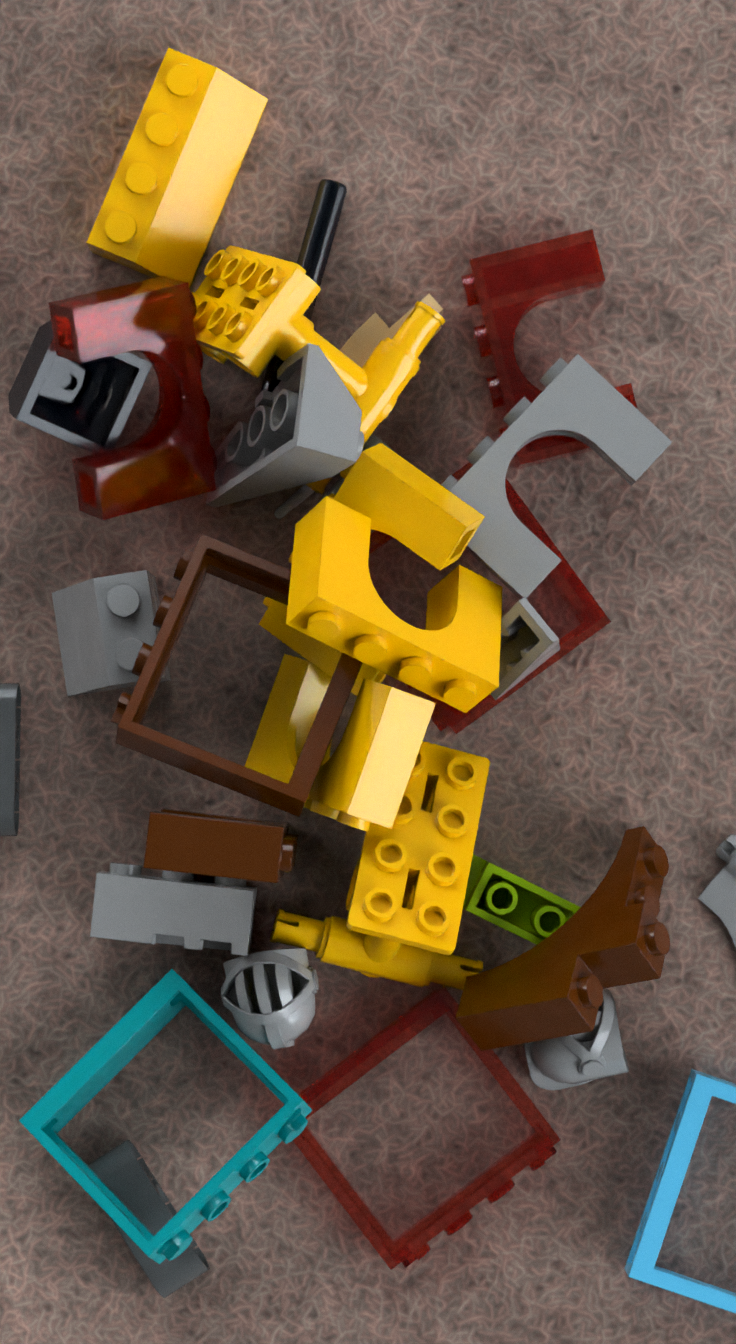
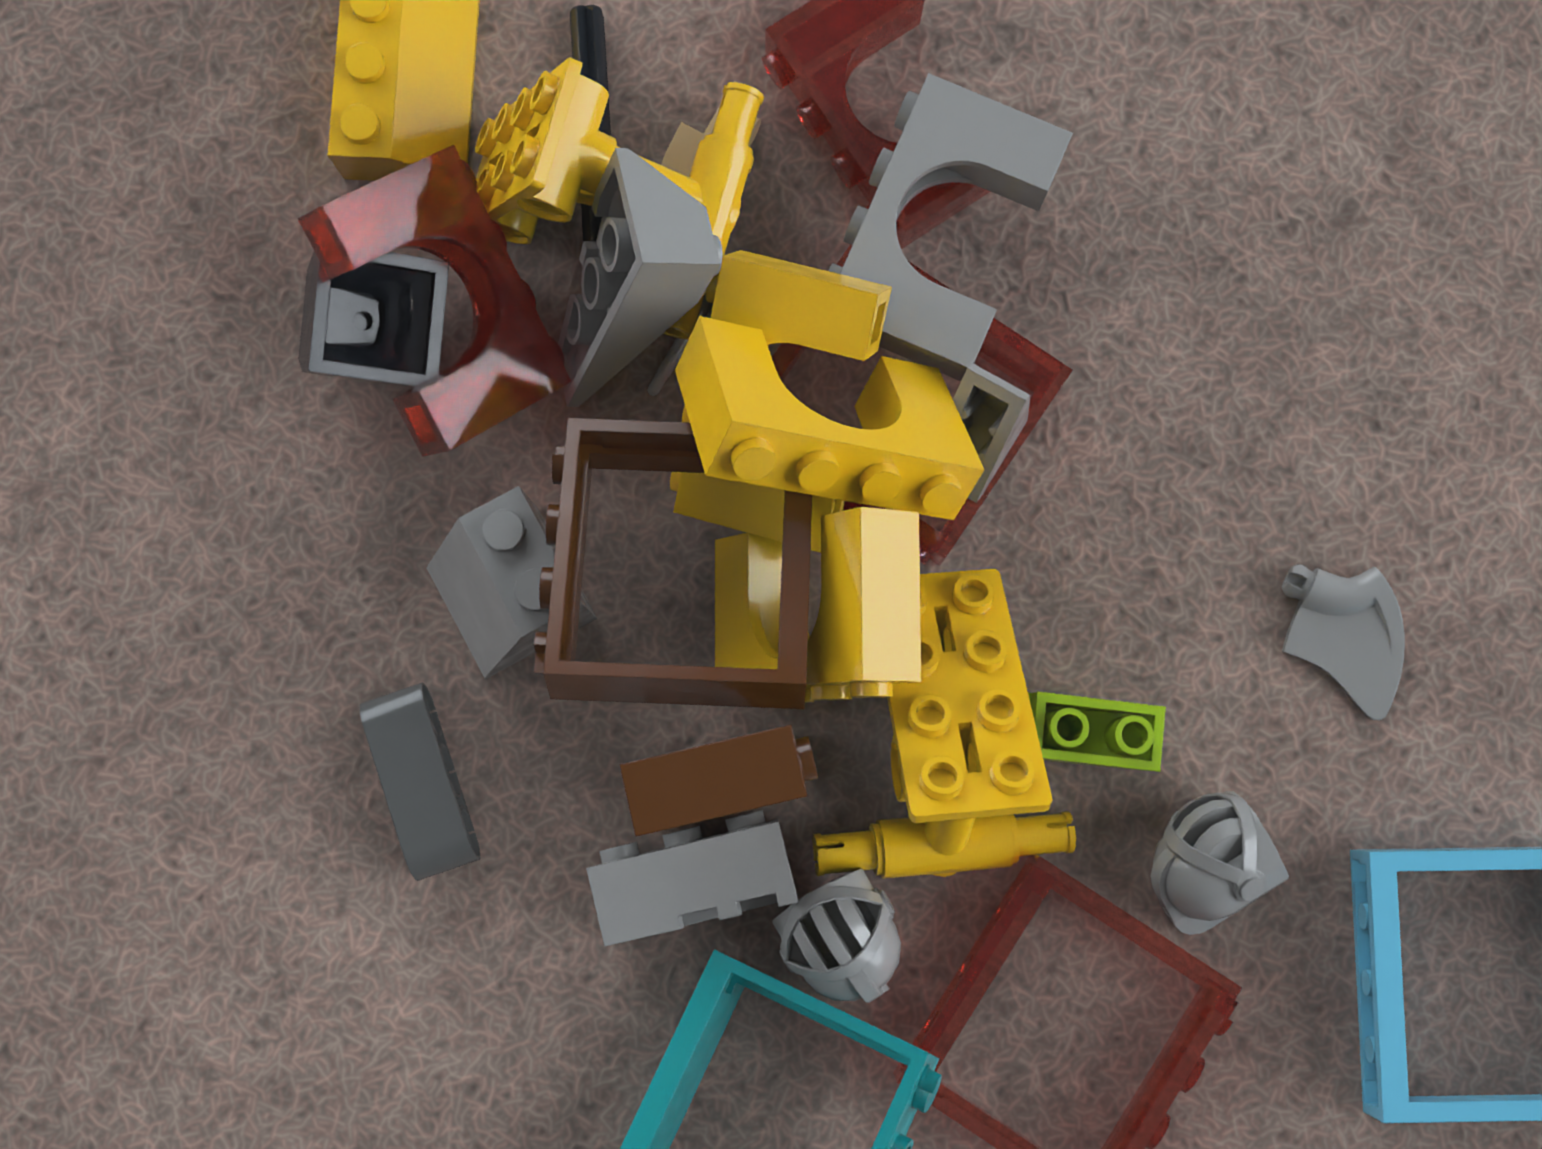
camera: 20 degrees left, 5 degrees down
(562, 979) = (1180, 794): reddish brown arch -> none

